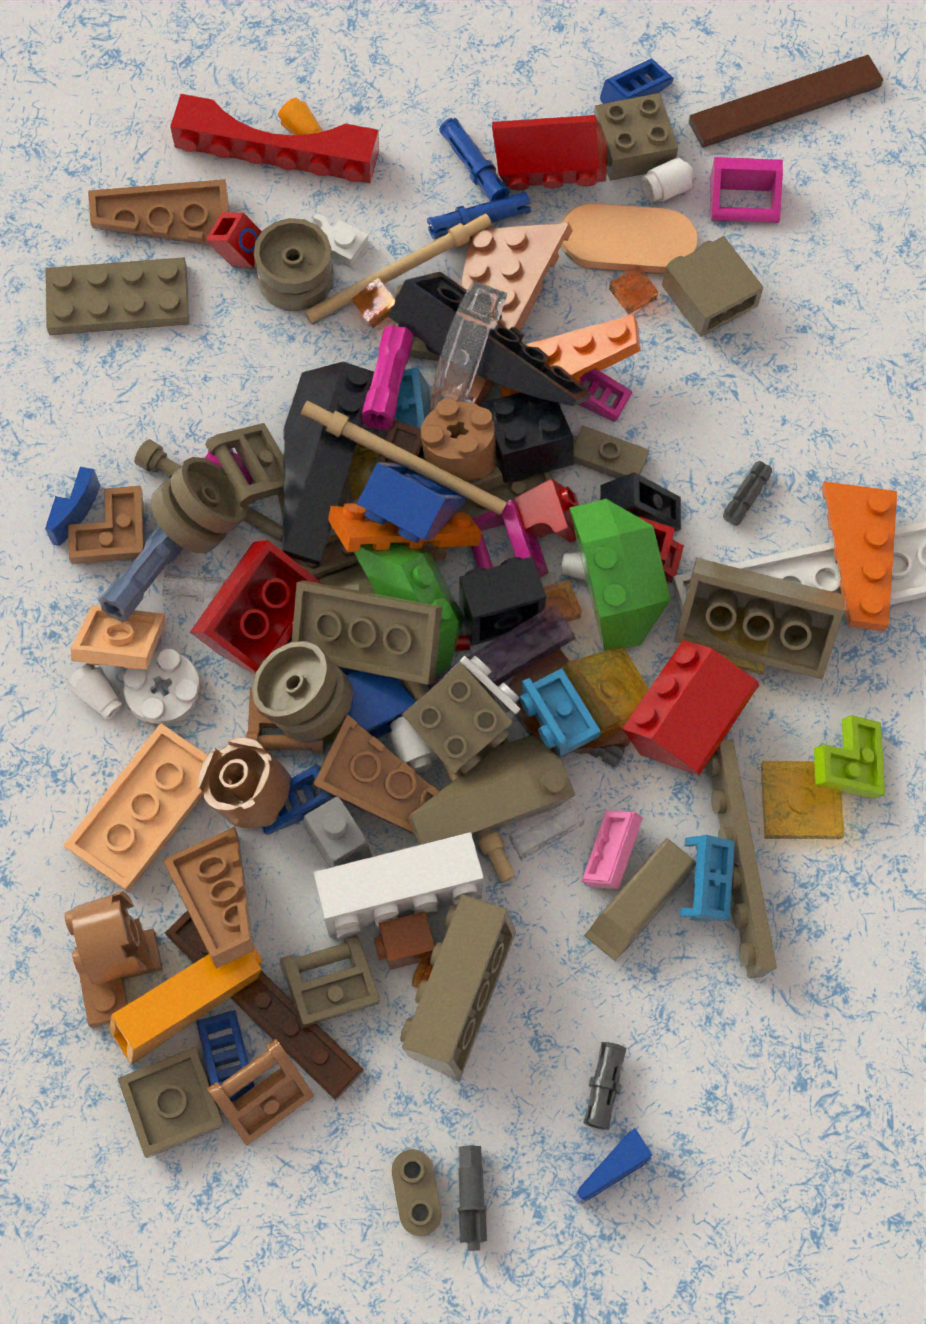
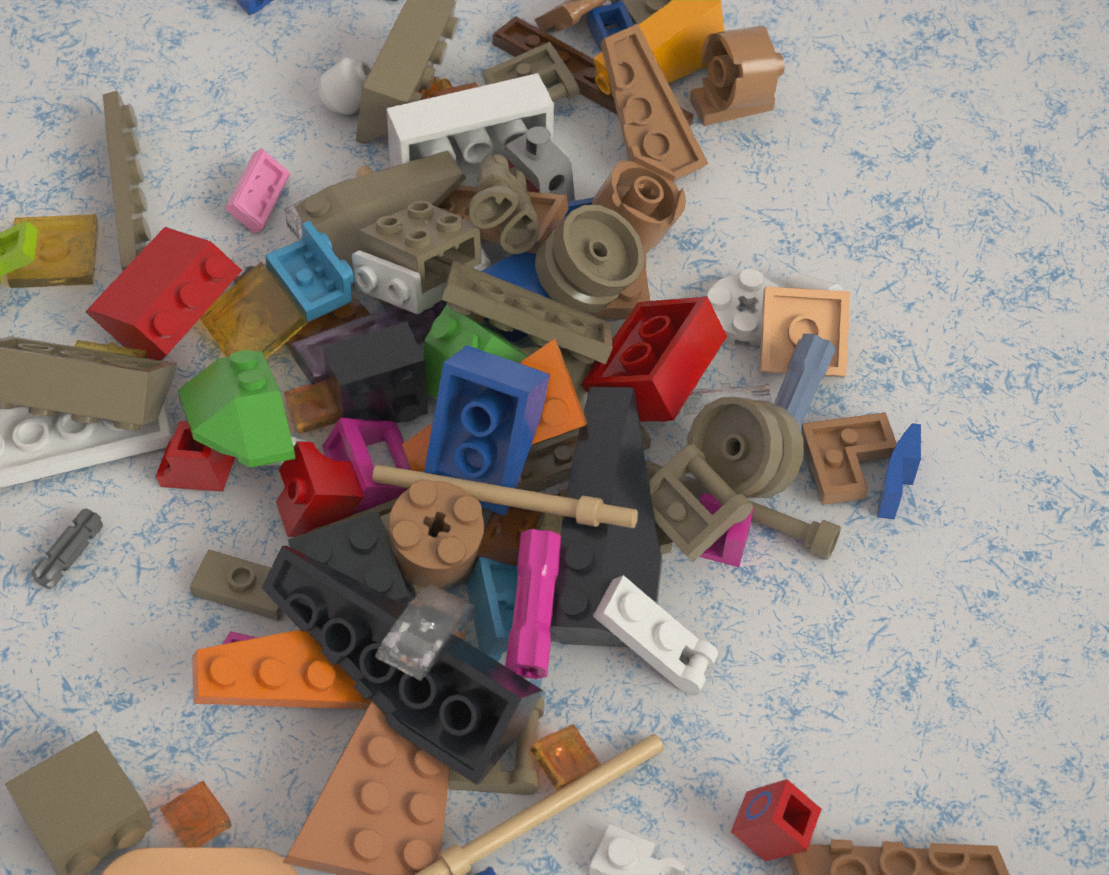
camera: 175 degrees right, 15 degrees down
(116, 296) = (927, 754): dark tan plate -> none
(140, 809) = (737, 204): light nougat plate -> none
(294, 264) = (687, 788): dark tan wheel -> none
(298, 370) = (655, 635): none -> white plate
(371, 763) = (502, 198): none -> dark tan piece
(522, 977) = (343, 85): none -> white head
(605, 1085) = (272, 34): dark grey pin -> none
(641, 899) = (224, 156): dark tan piece -> none
(644, 499) = (207, 512): black slope -> none
(711, 879) = (159, 157): dark azure hinge -> none

